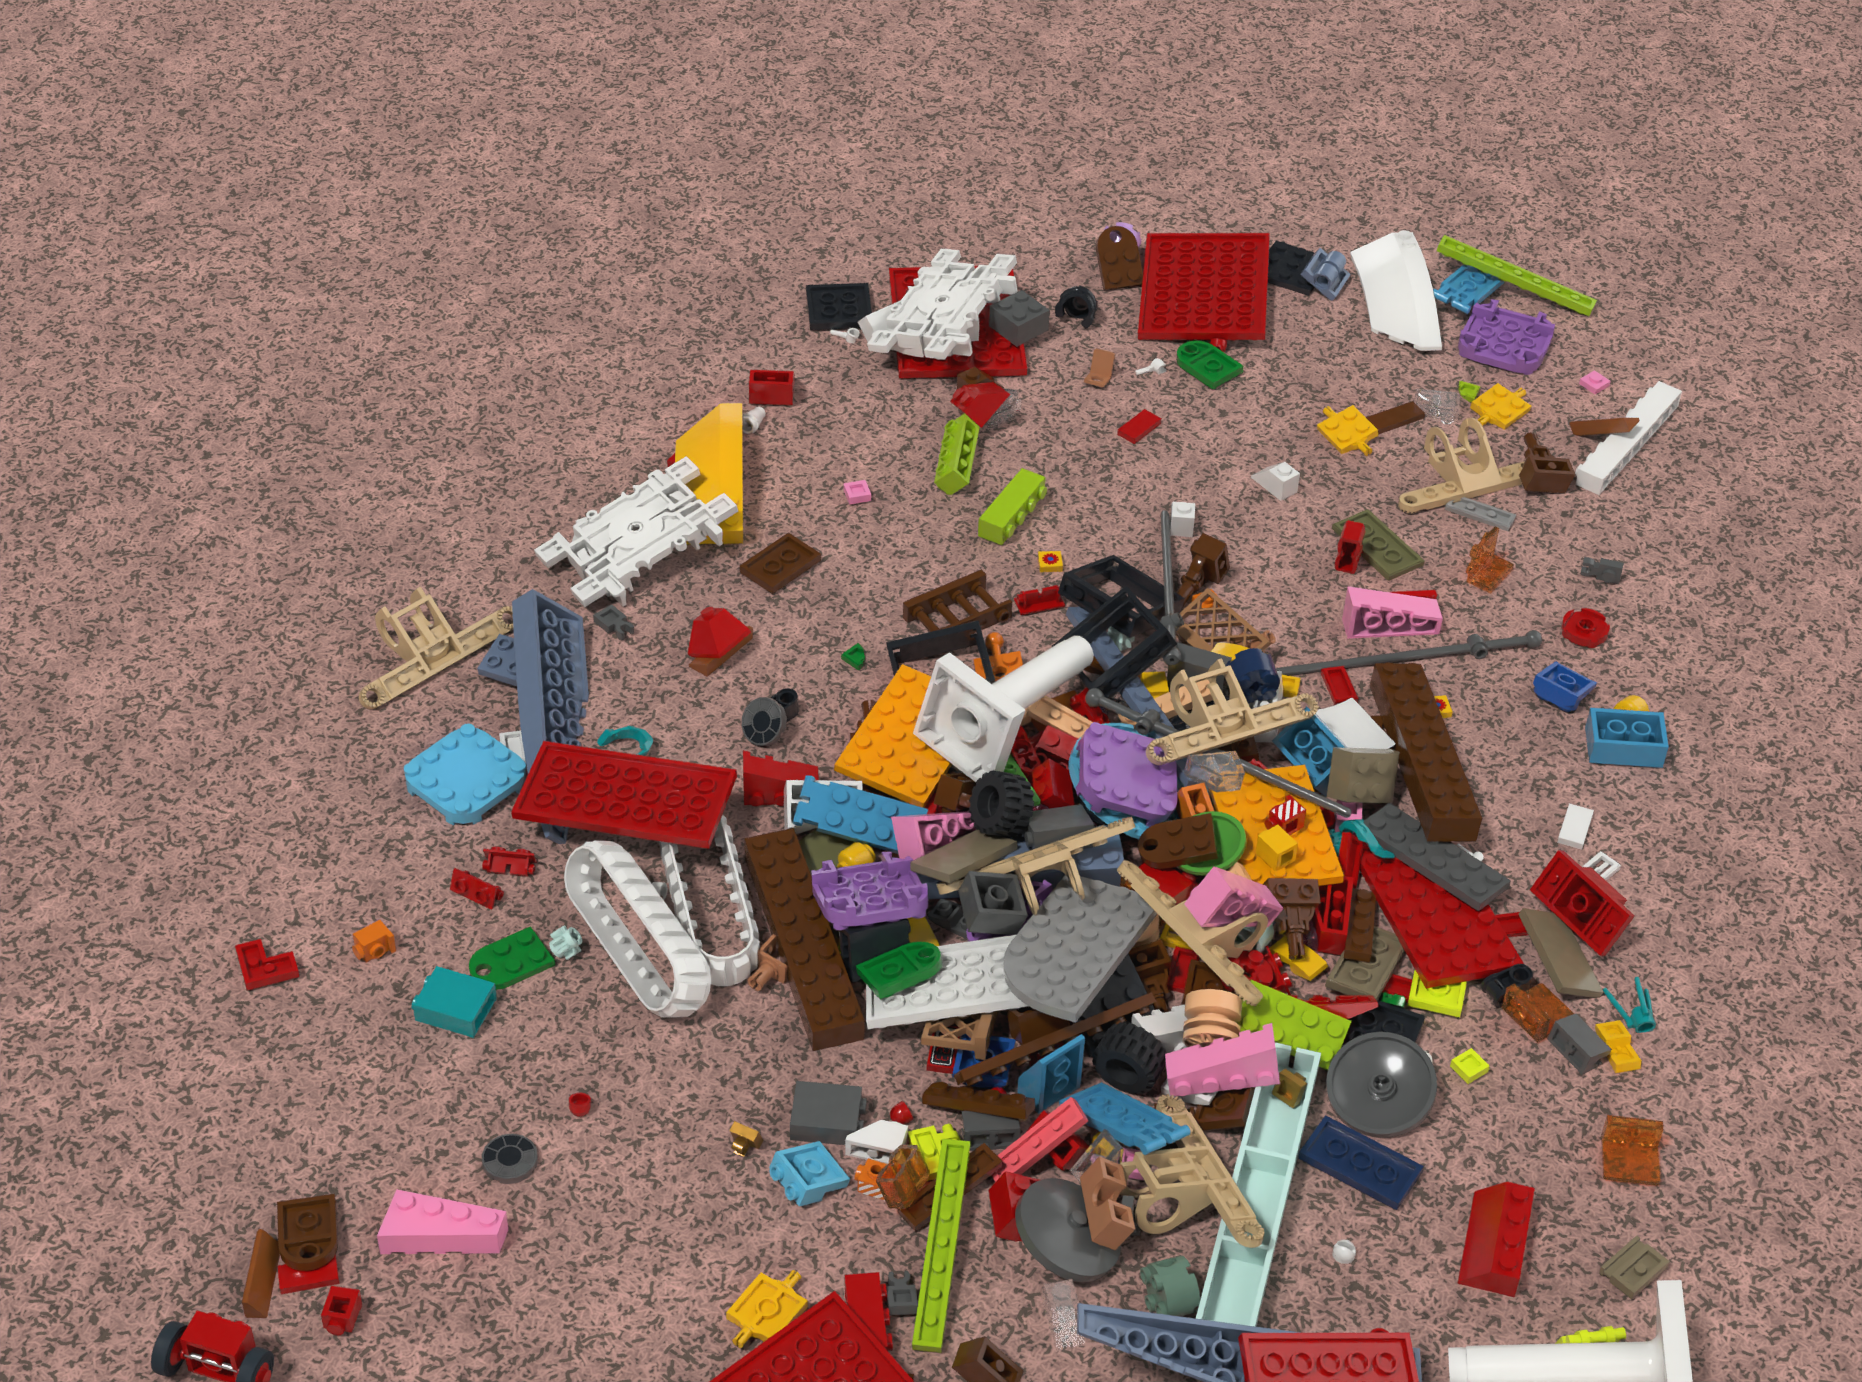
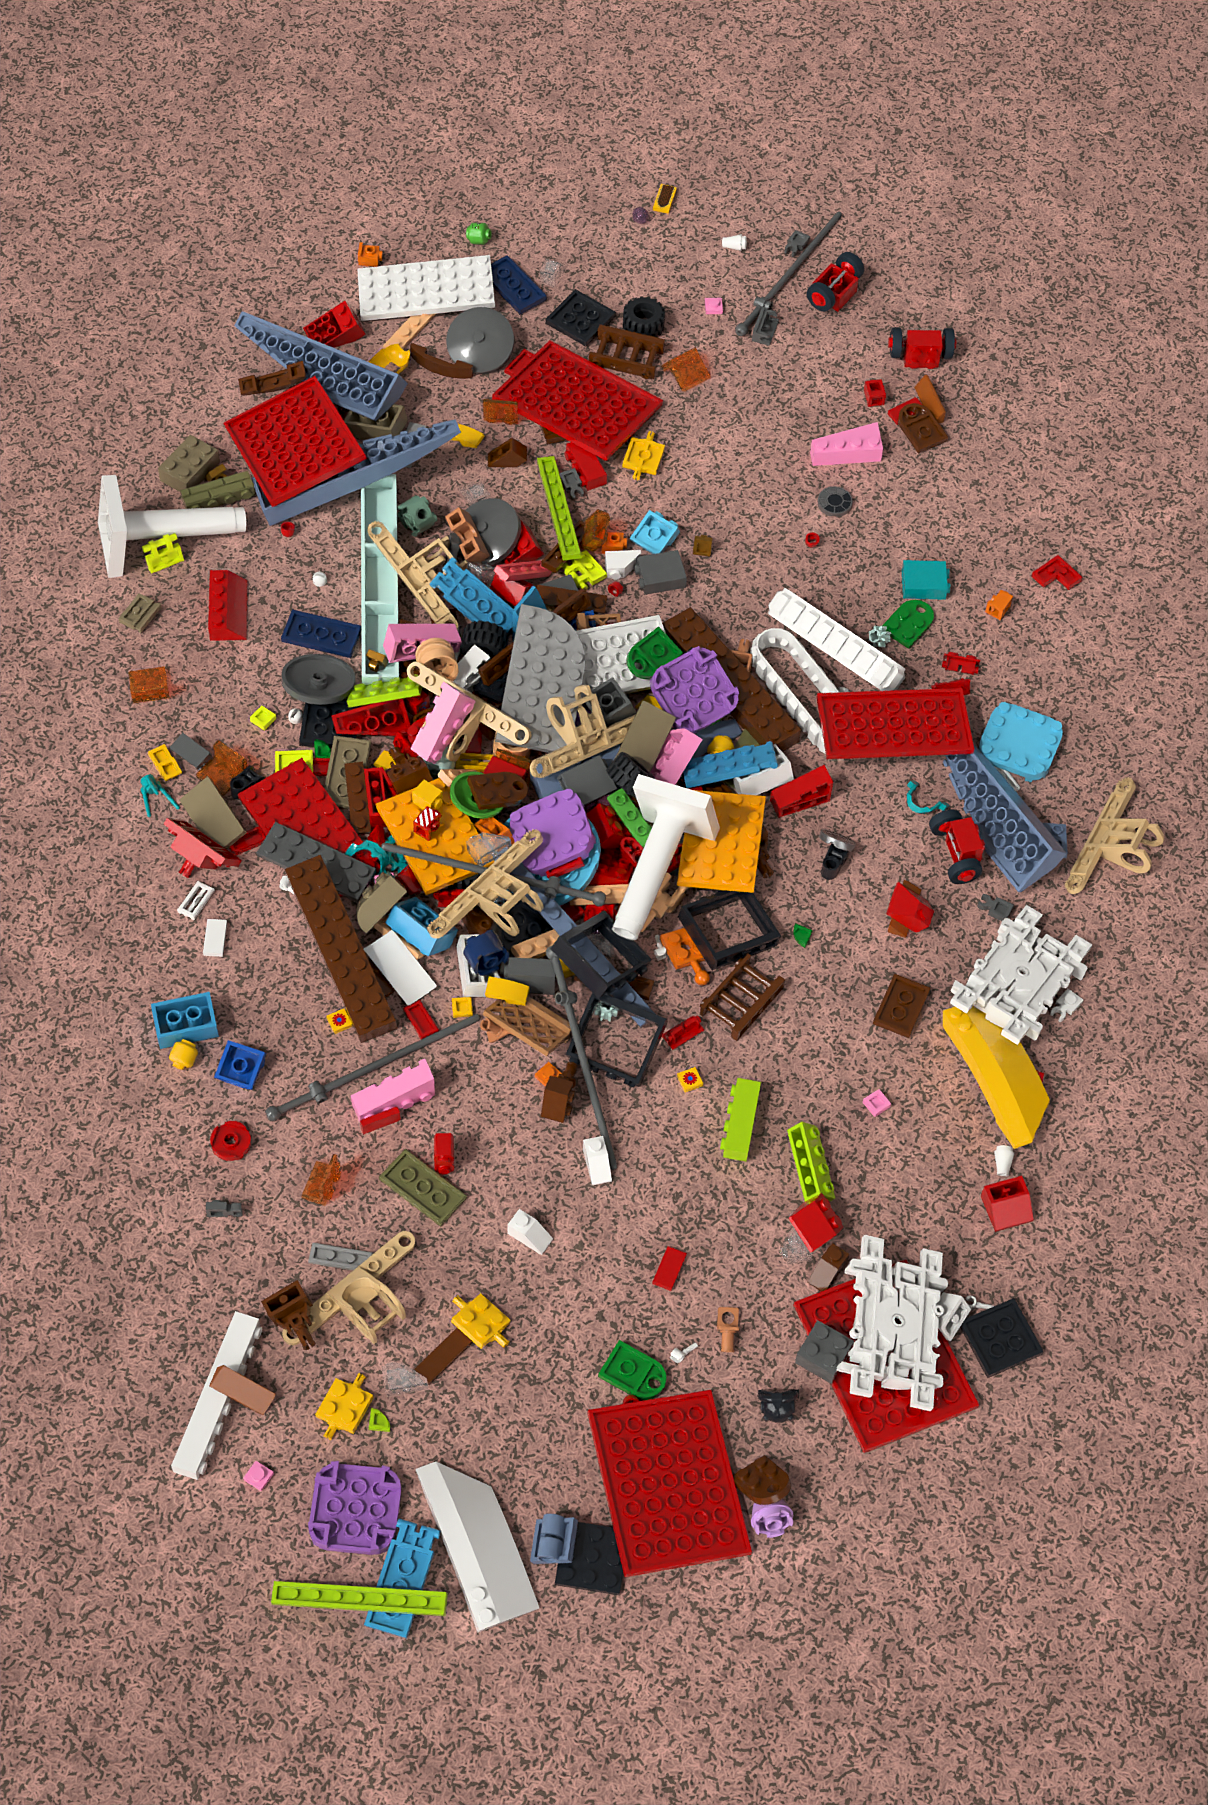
camera: 160 degrees right, 15 degrees up
(615, 674) = (963, 844): none -> brick

